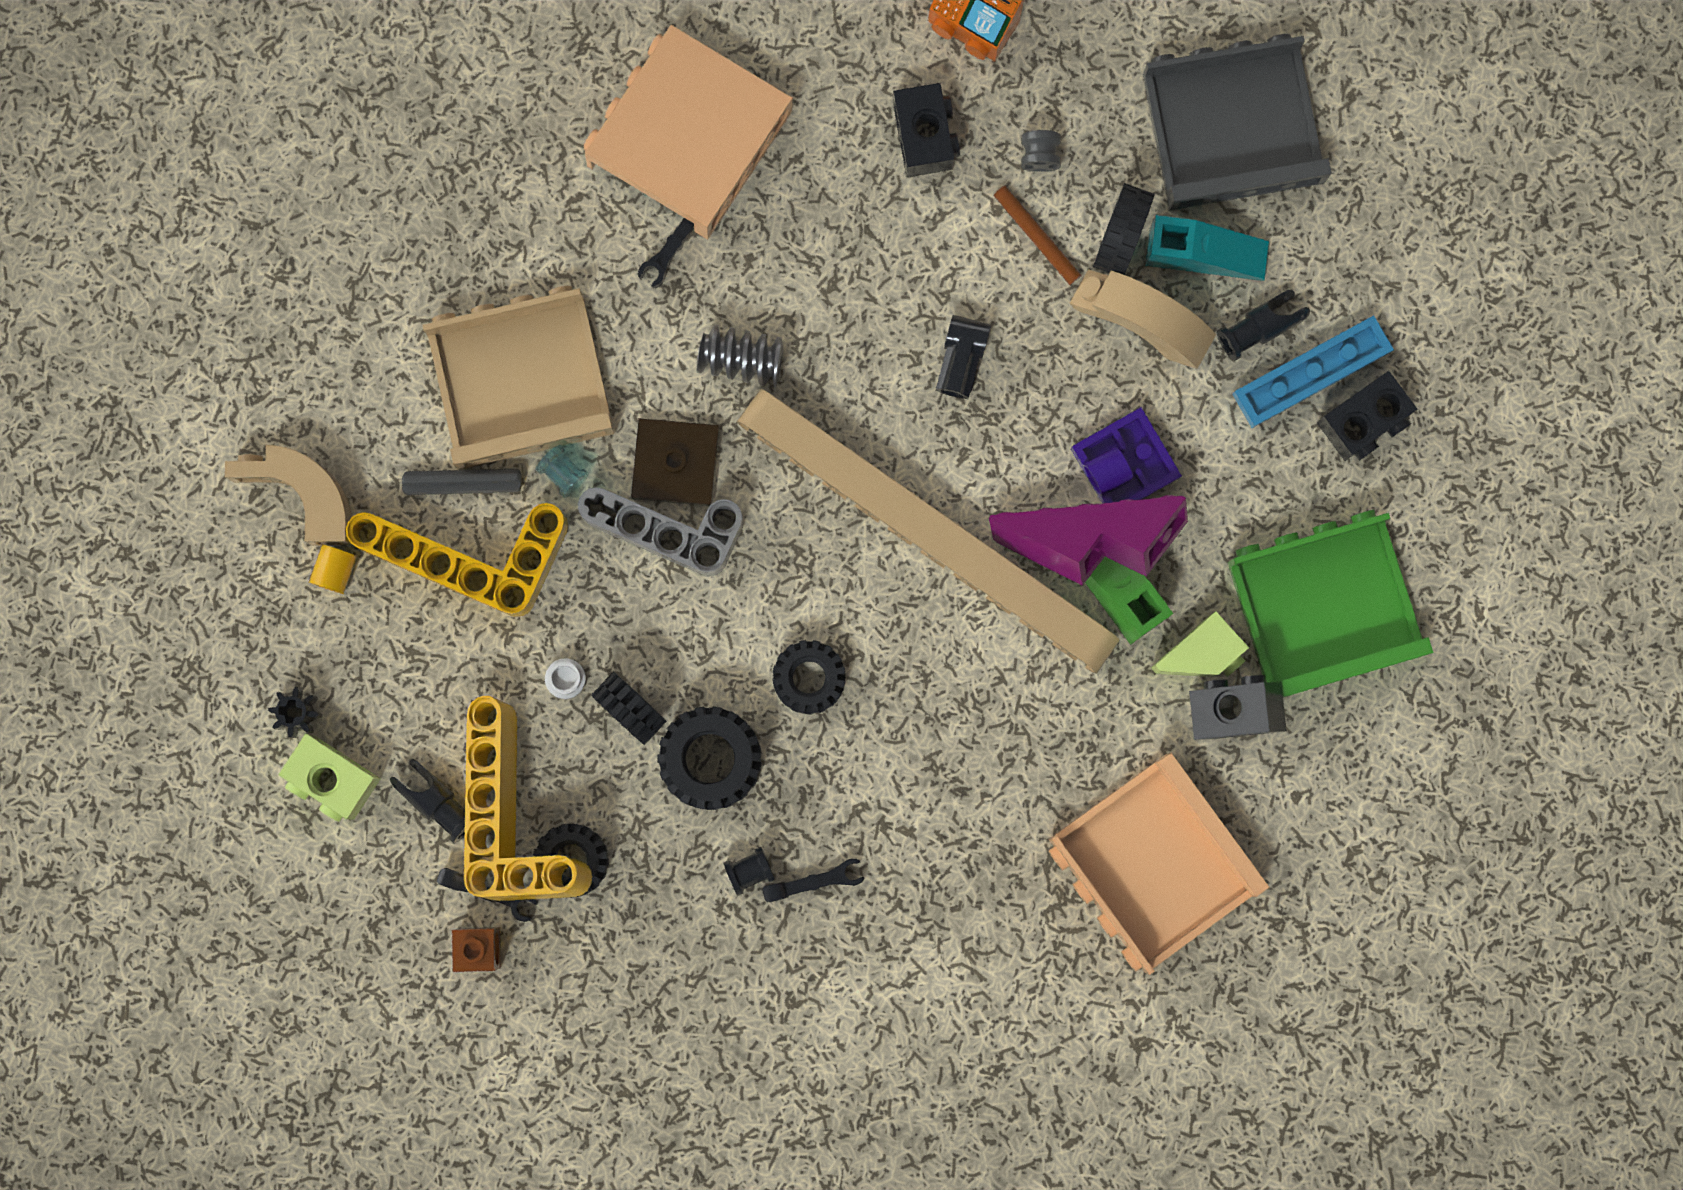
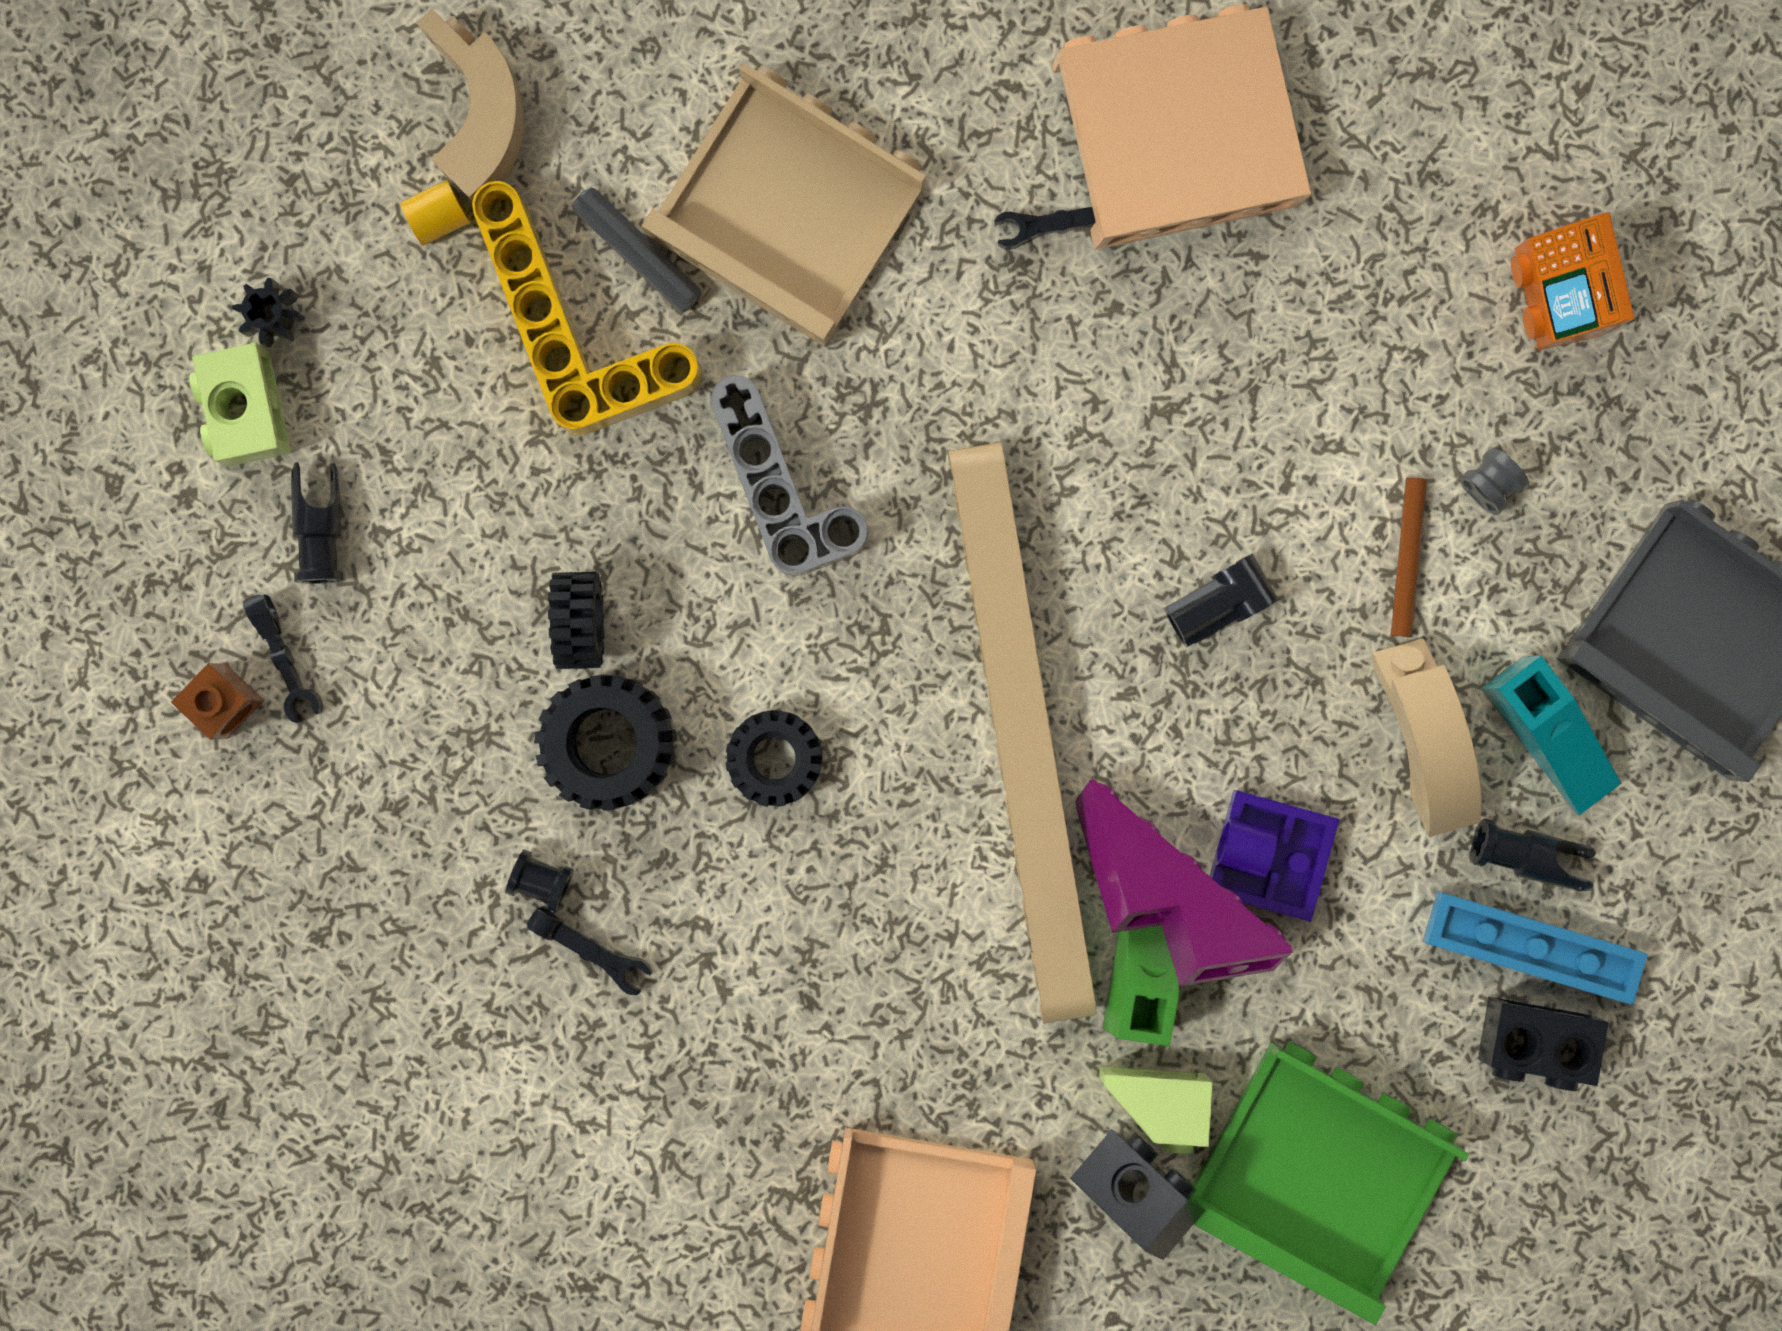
camera: 40 degrees right, 5 degrees up
(502, 817) = (359, 603): yellow beam -> none
(561, 471) = (746, 318): clear light blue bush -> none
(565, 678) = (549, 531): white plate -> none
(584, 838) = (354, 705): black tyre -> none
(675, 462) = (853, 430): dark brown plate -> none
(740, 355) = (1013, 392): flat silver piece -> none
(922, 106) = (1425, 325): black brick -> none
(1124, 229) = (1496, 638): black tyre -> none

